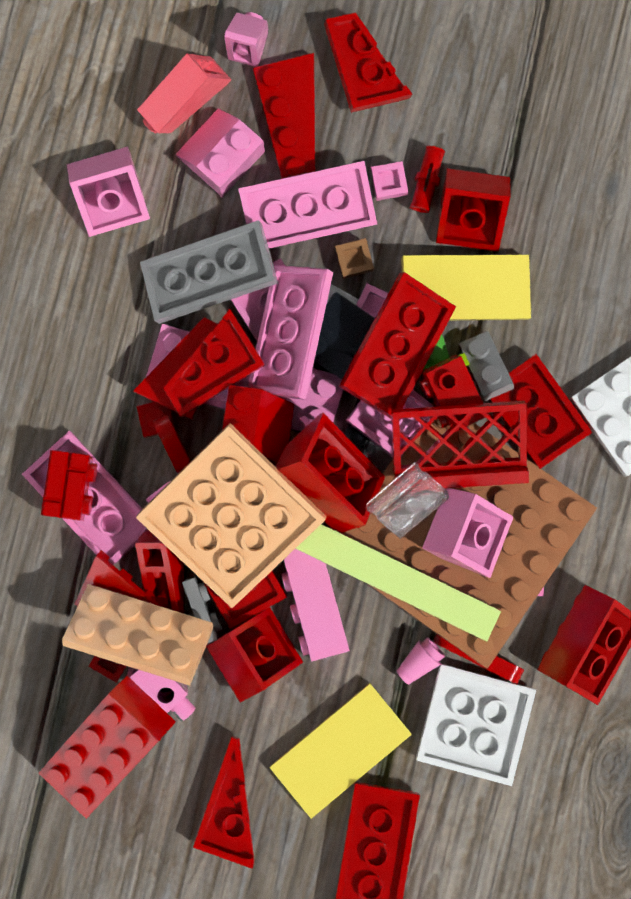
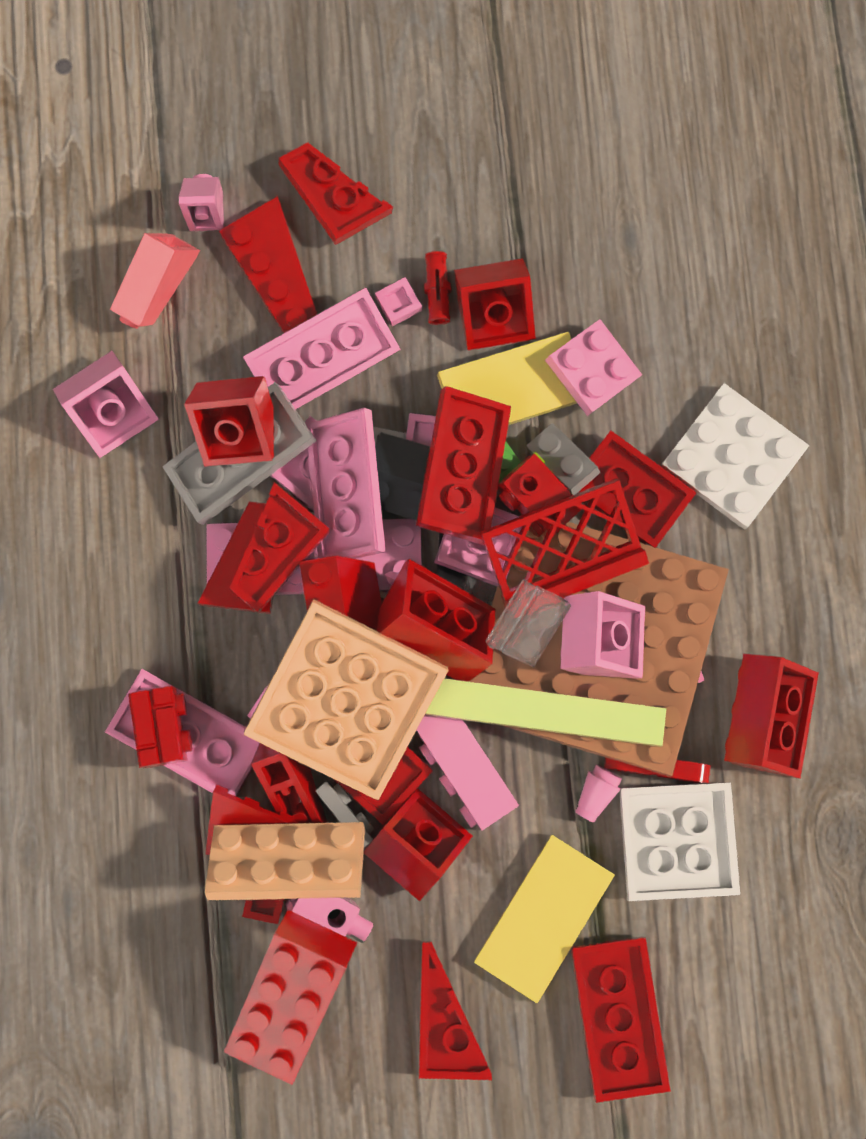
camera: 20 degrees left, 5 degrees down
(148, 413) = (231, 627): red plate -> none
(172, 442) = (256, 644): red beam -> none
(211, 243) = (232, 420): none -> red slope
(222, 151) = (213, 325): bright pink slope -> none
(354, 258) = (388, 392): medium nougat plate -> none
(540, 293) = (593, 367): none -> bright pink plate

